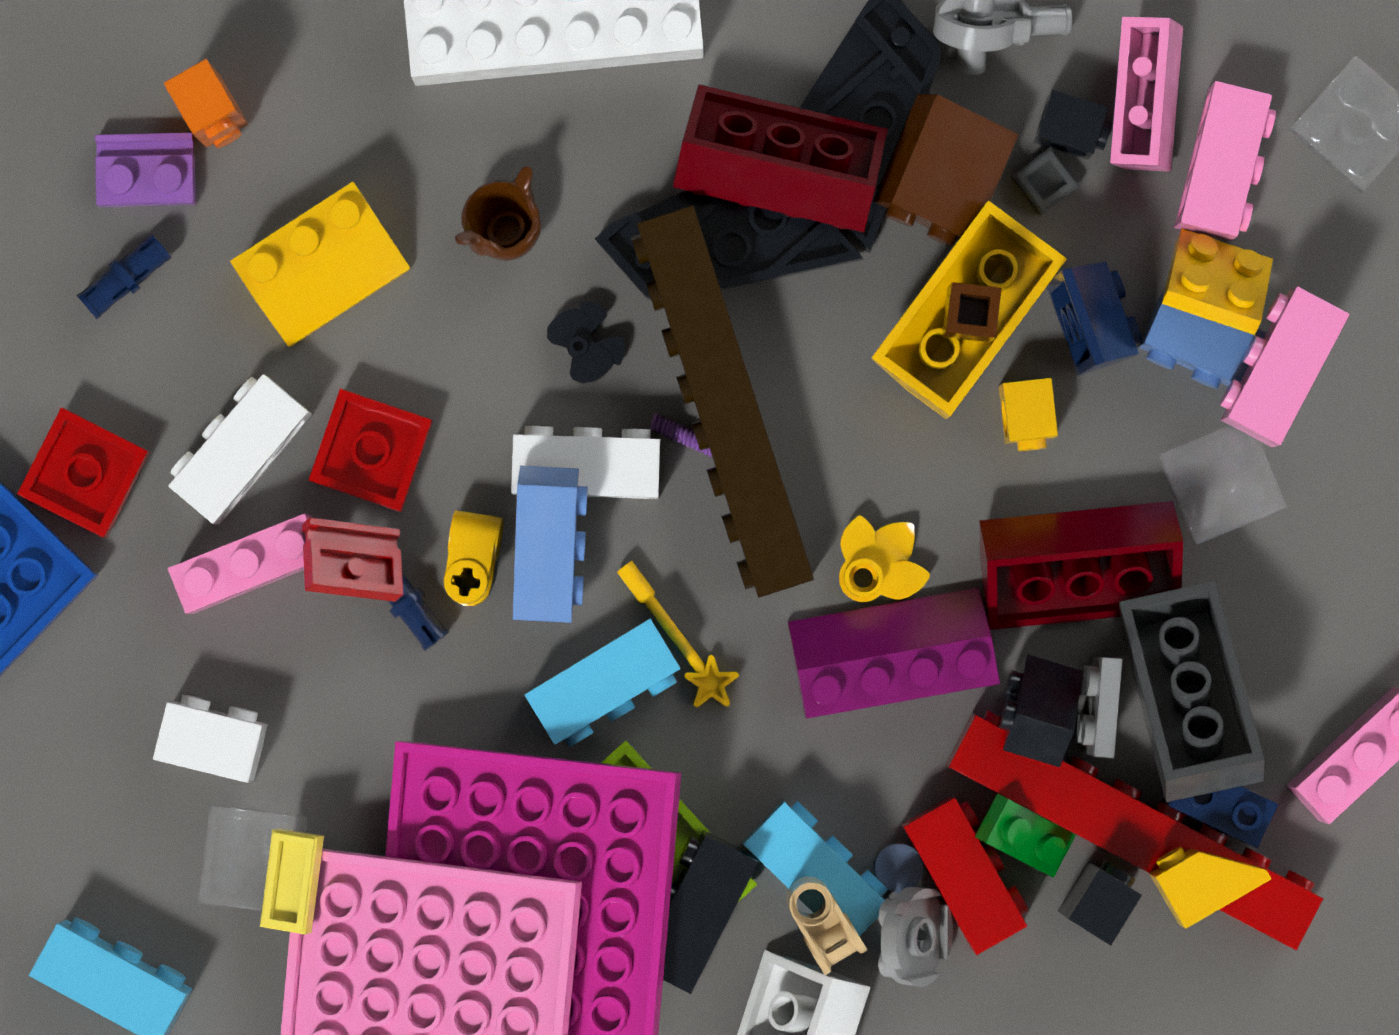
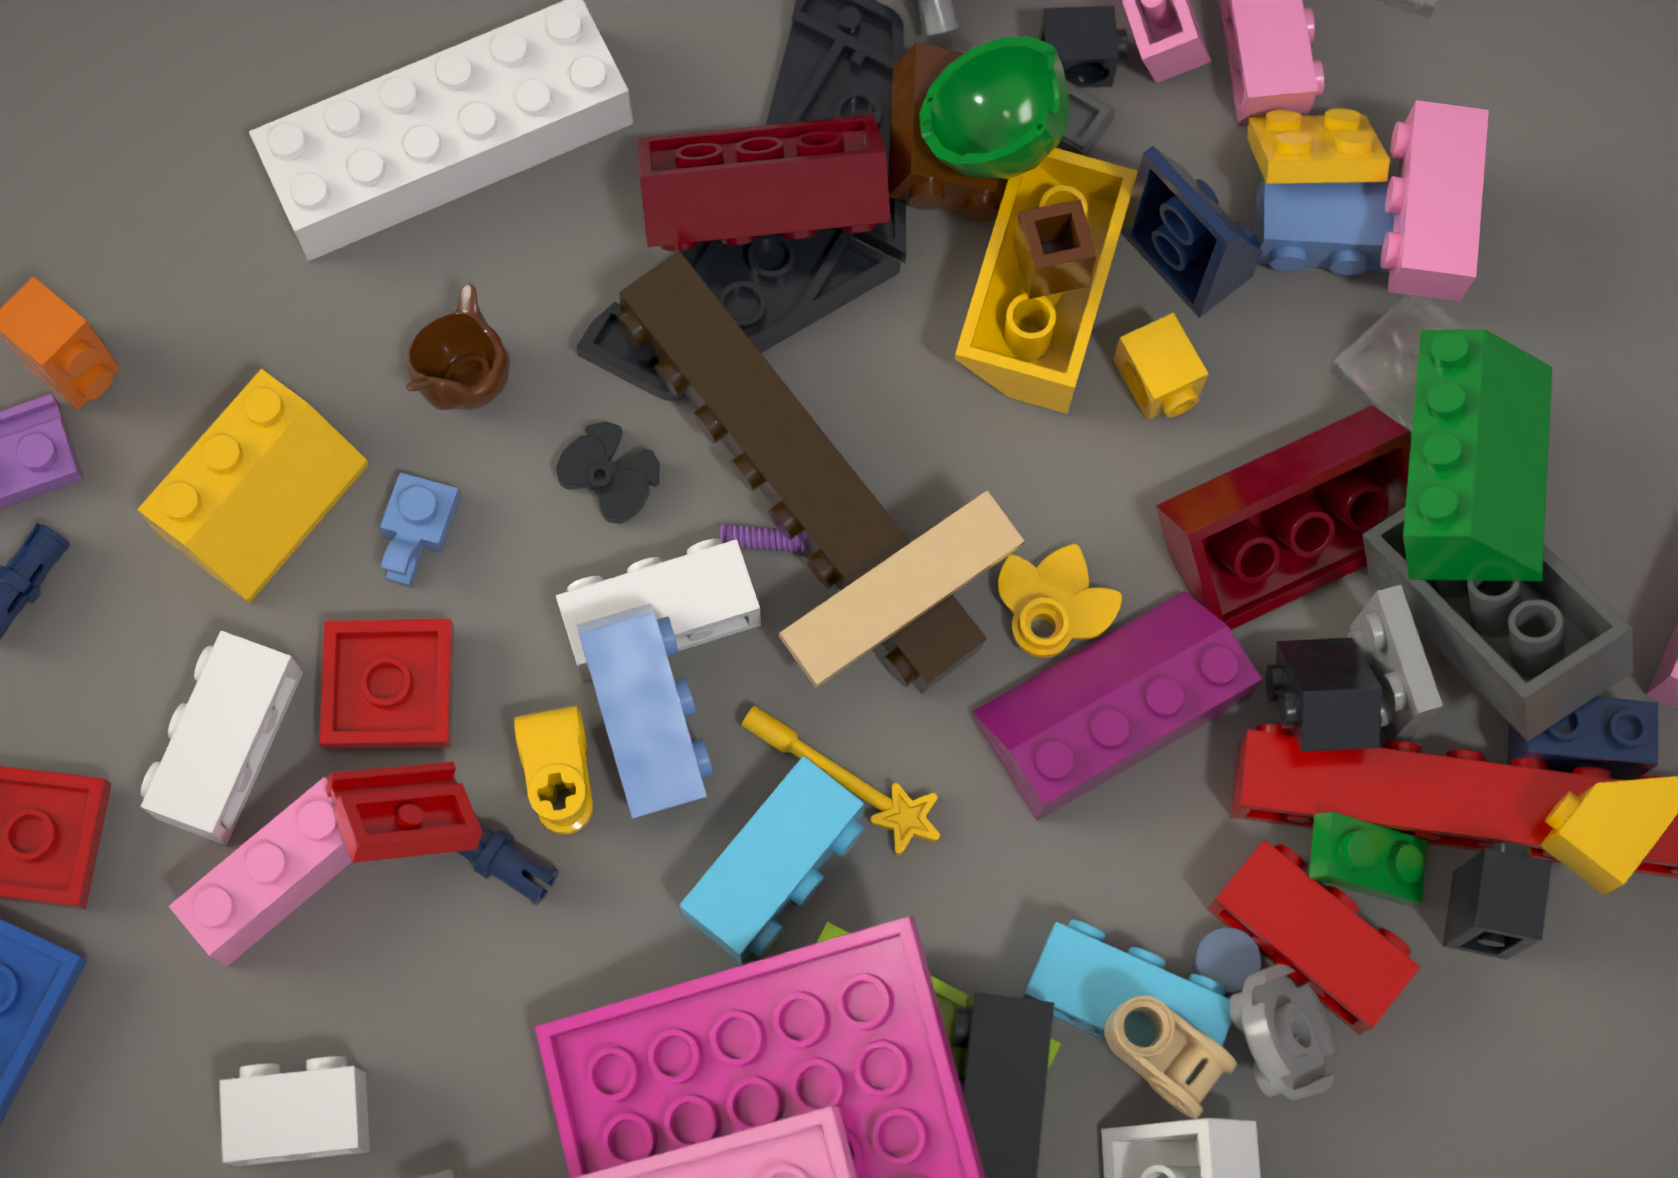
camera: 15 degrees left, 15 degrees down
(433, 328) = (415, 520): none -> medium blue plate
(764, 524) = (901, 589): none -> tan tile
(971, 182) = (997, 108): none -> green cylinder
(1221, 582) = (1477, 460): none -> green slope

